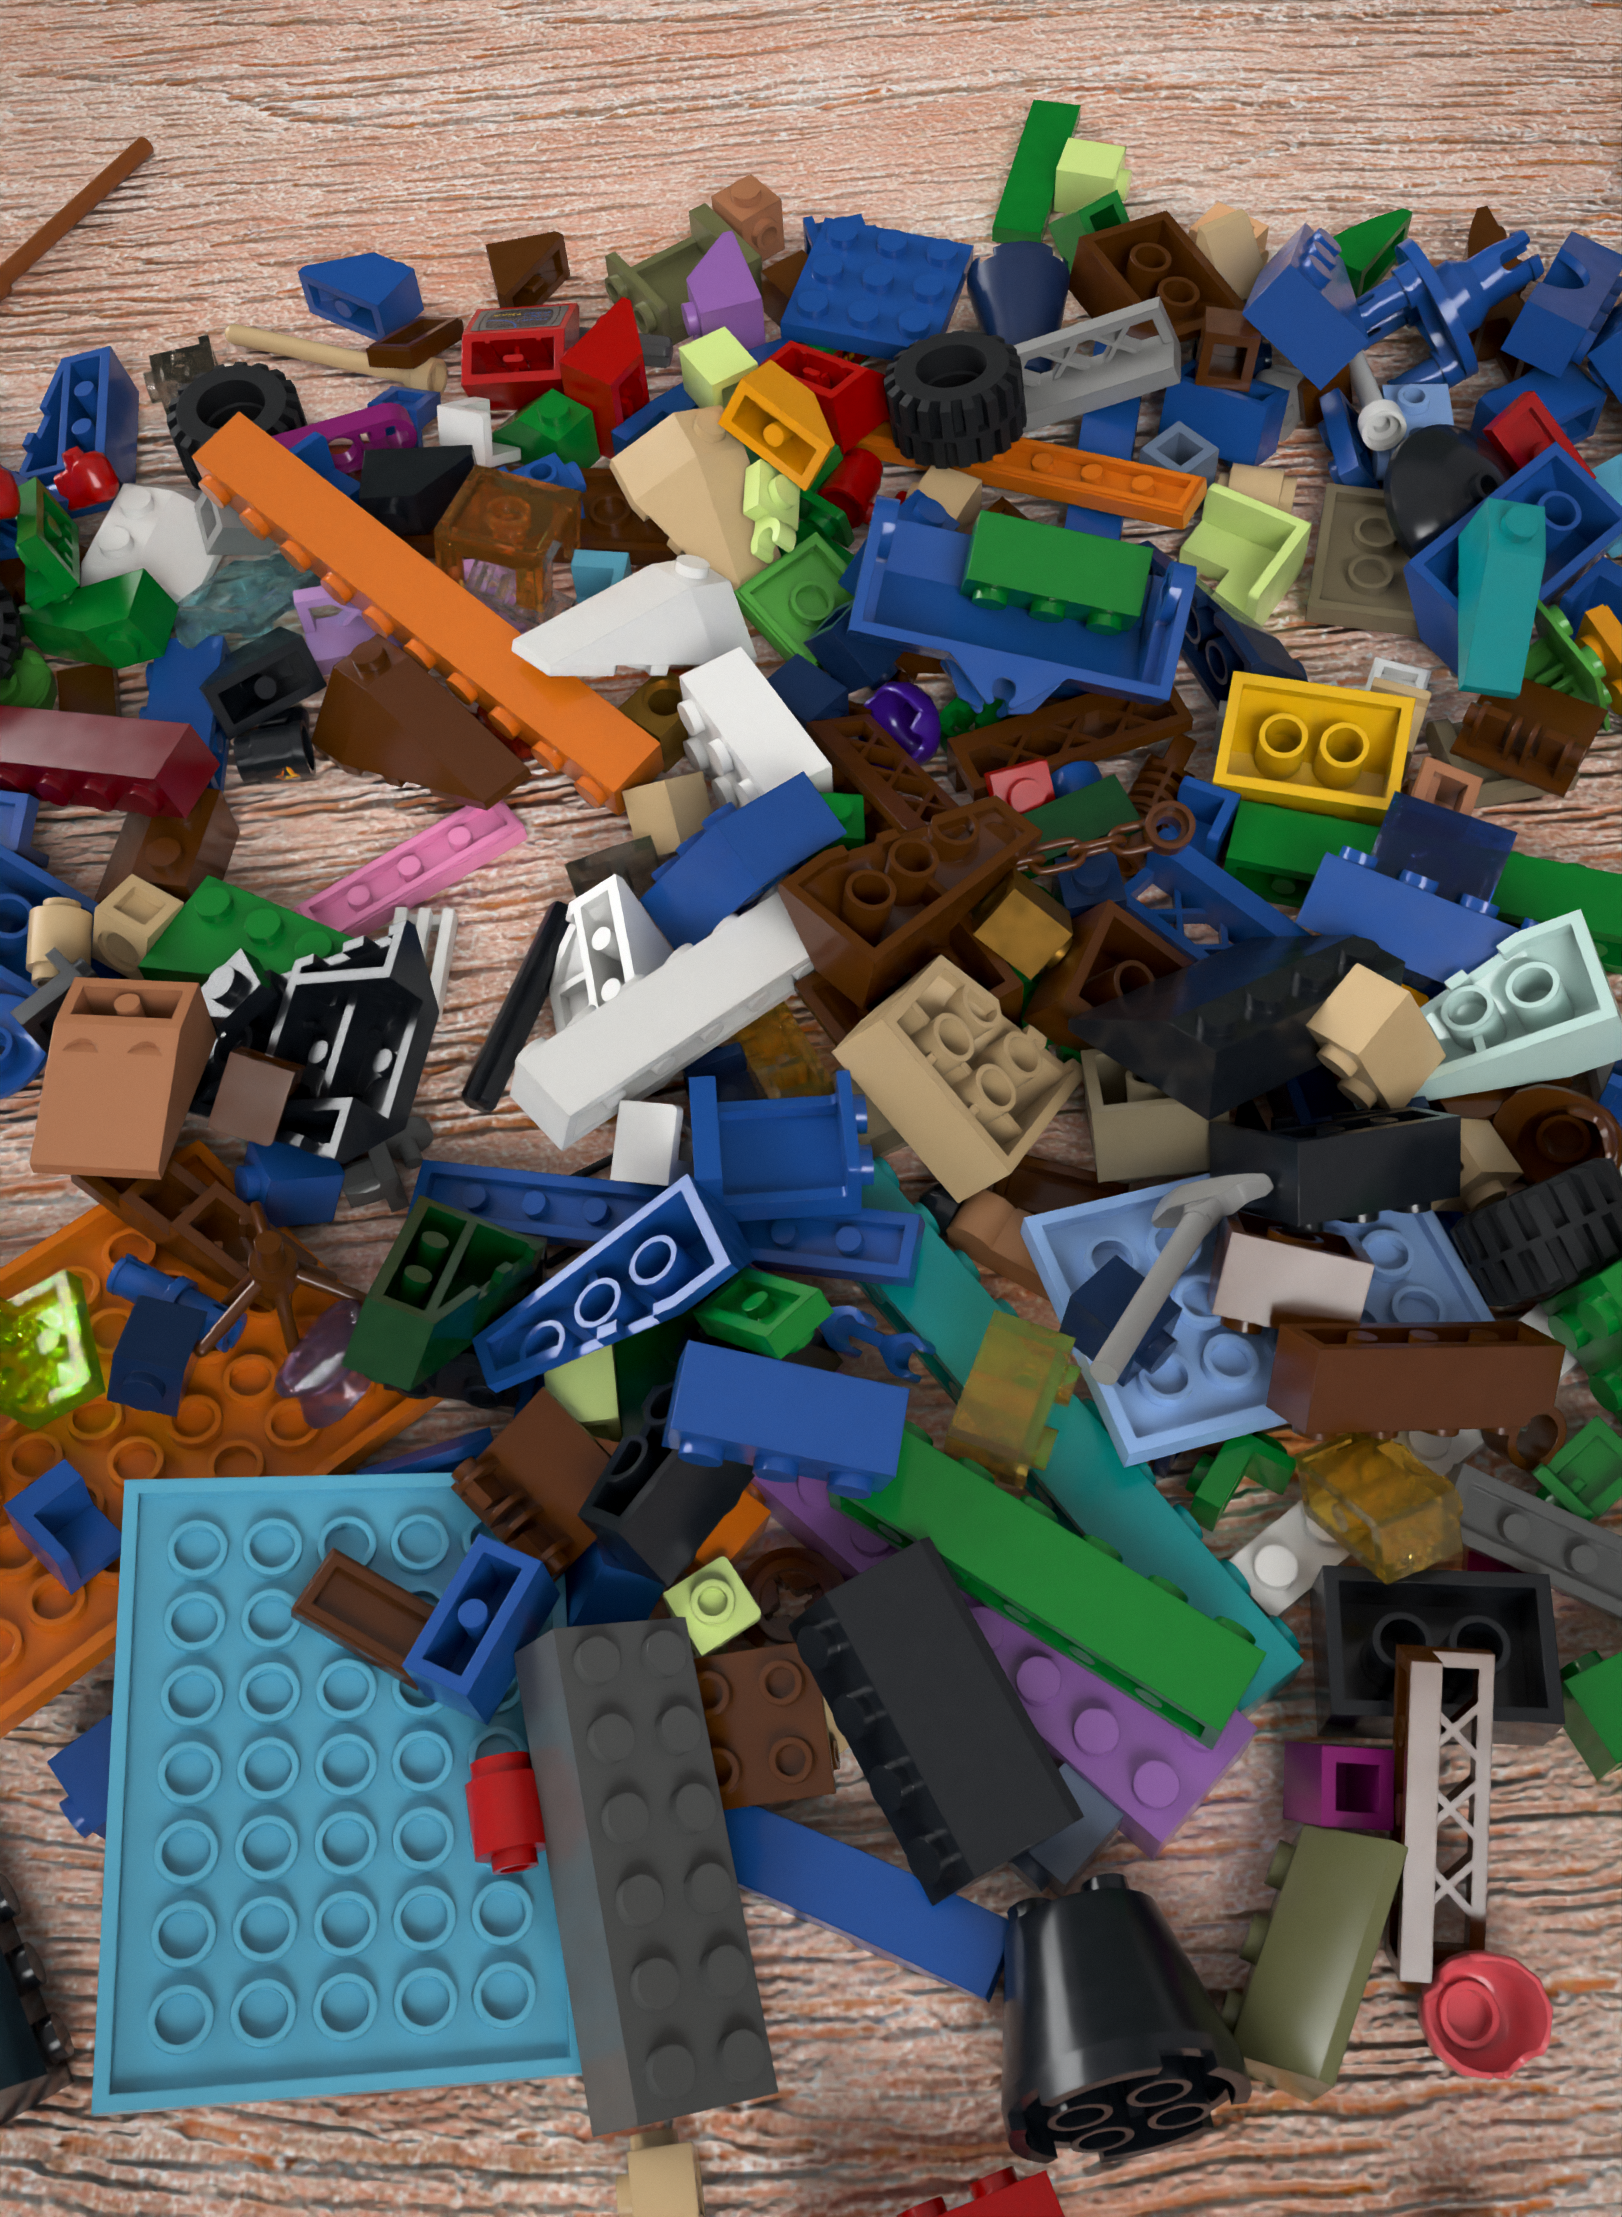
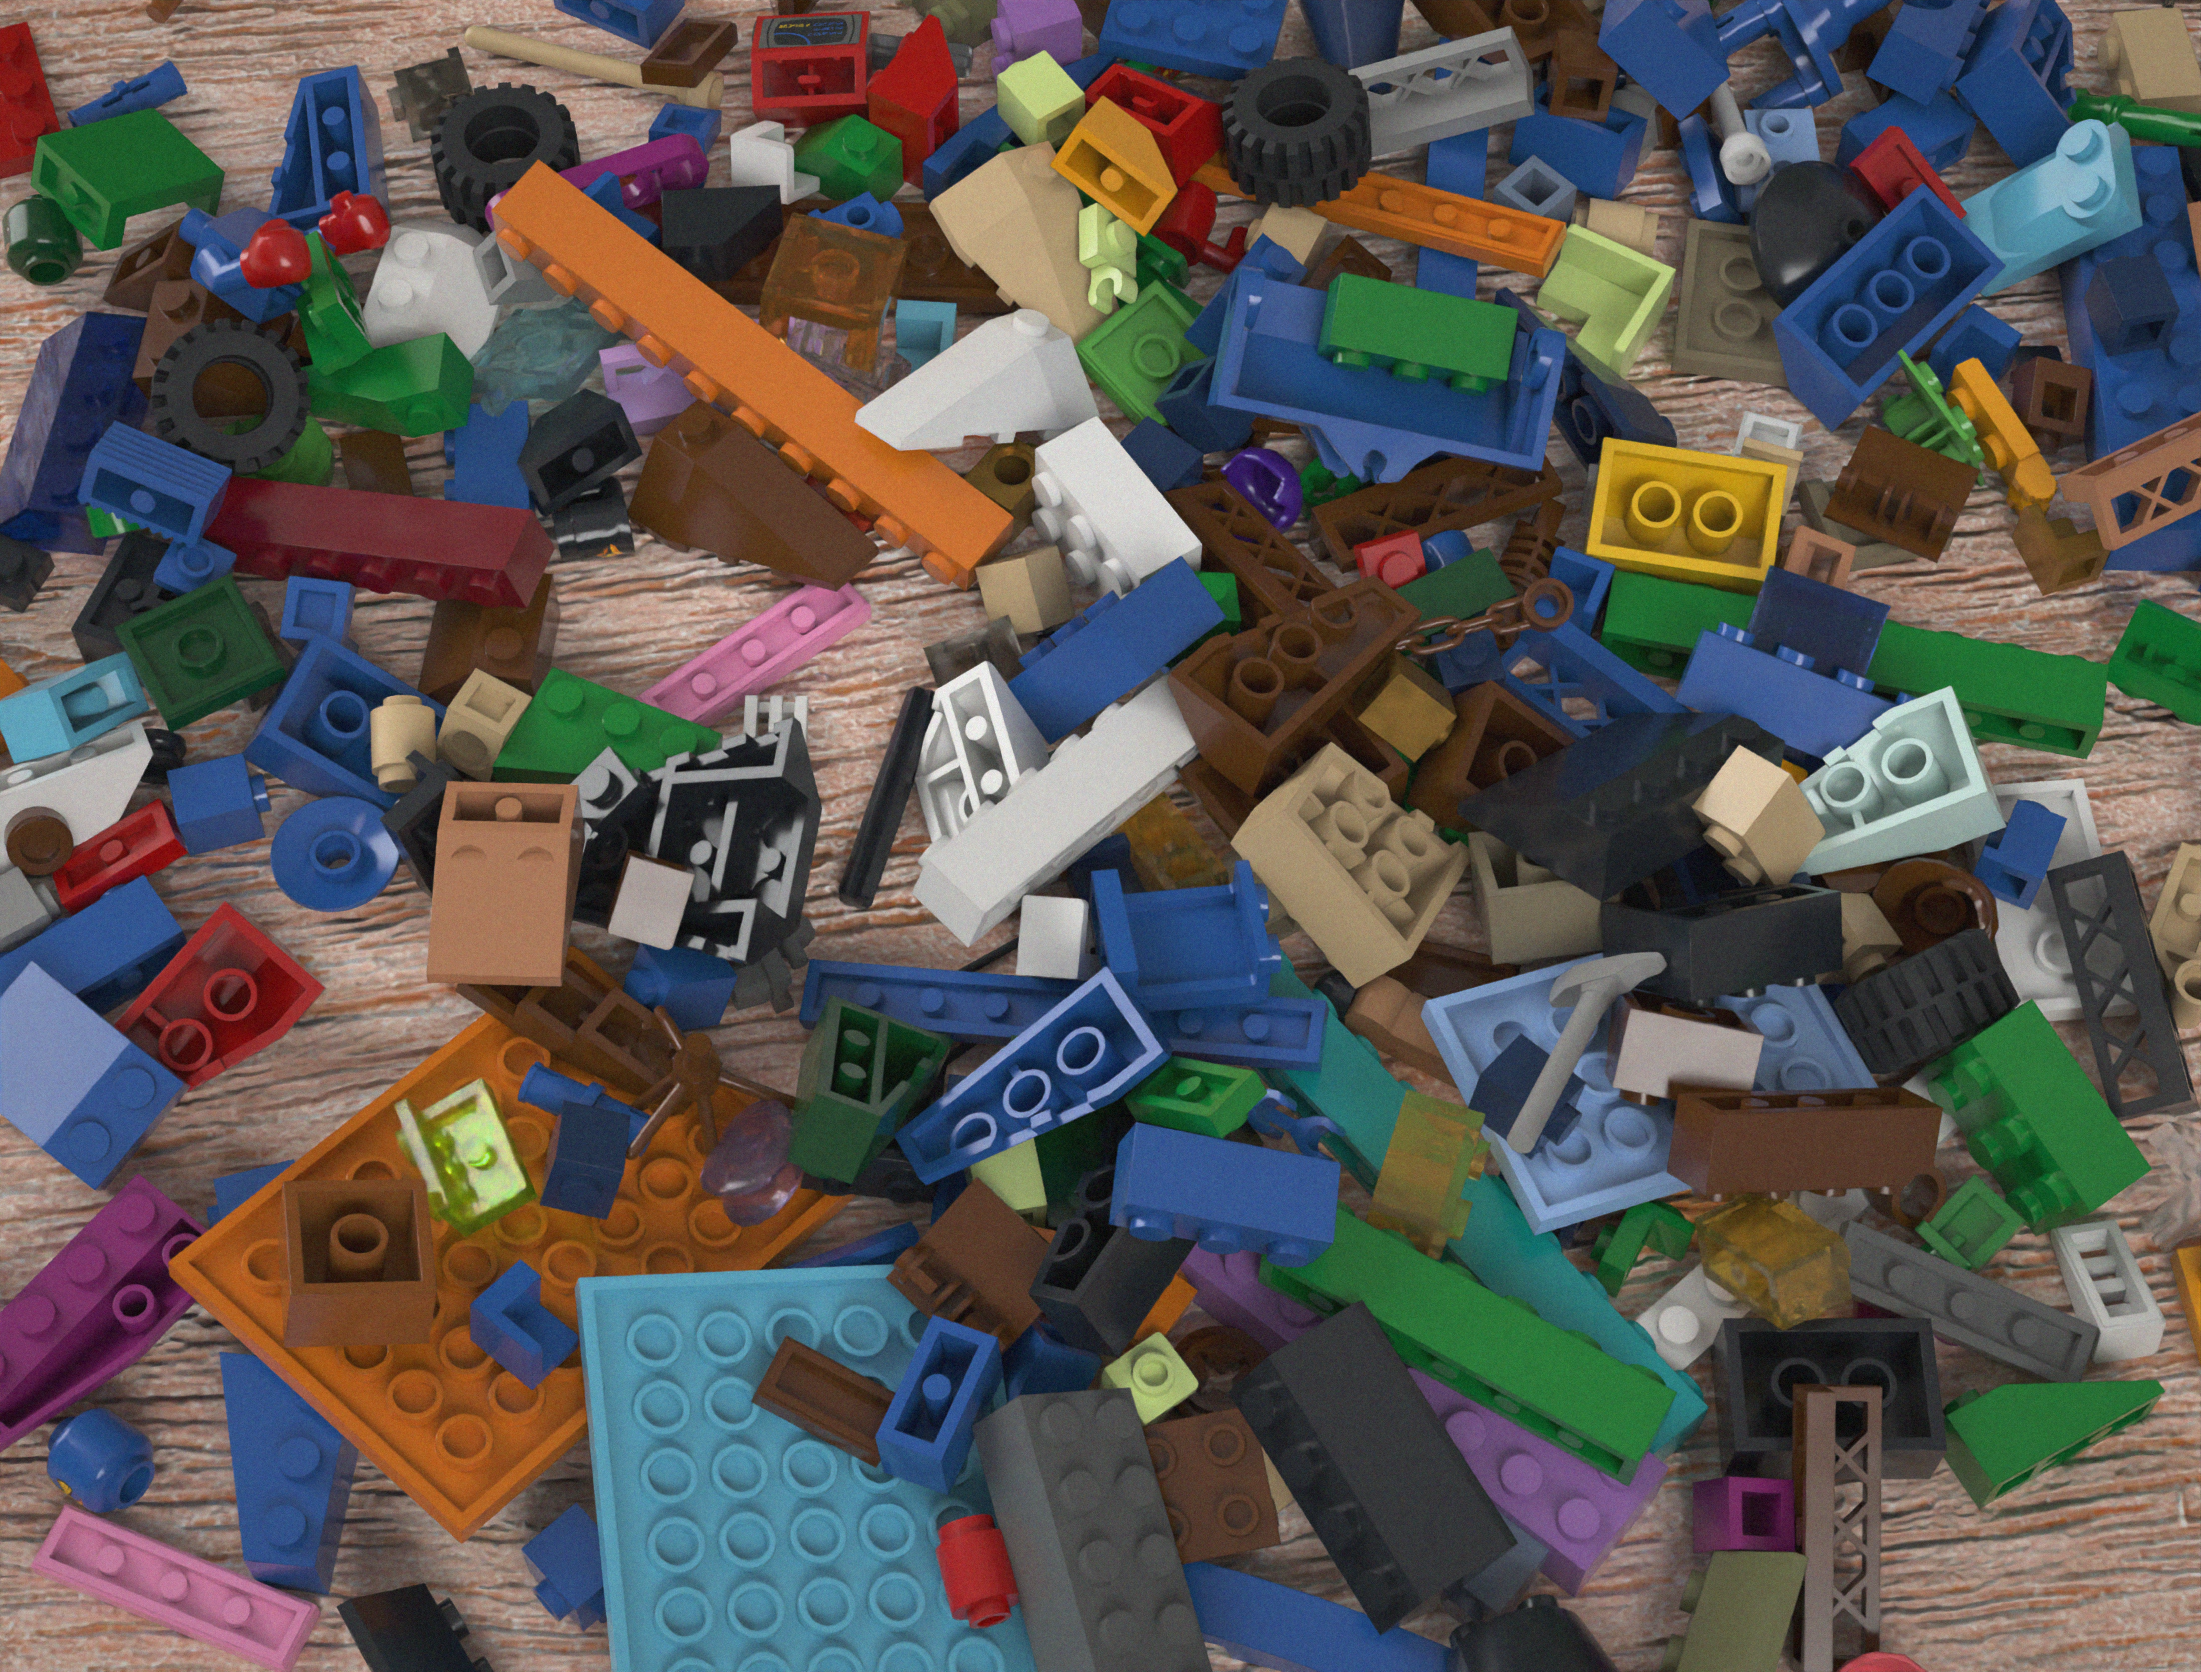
camera: 10 degrees left, 0 degrees up
(1498, 595) = (1868, 354): teal slope -> none

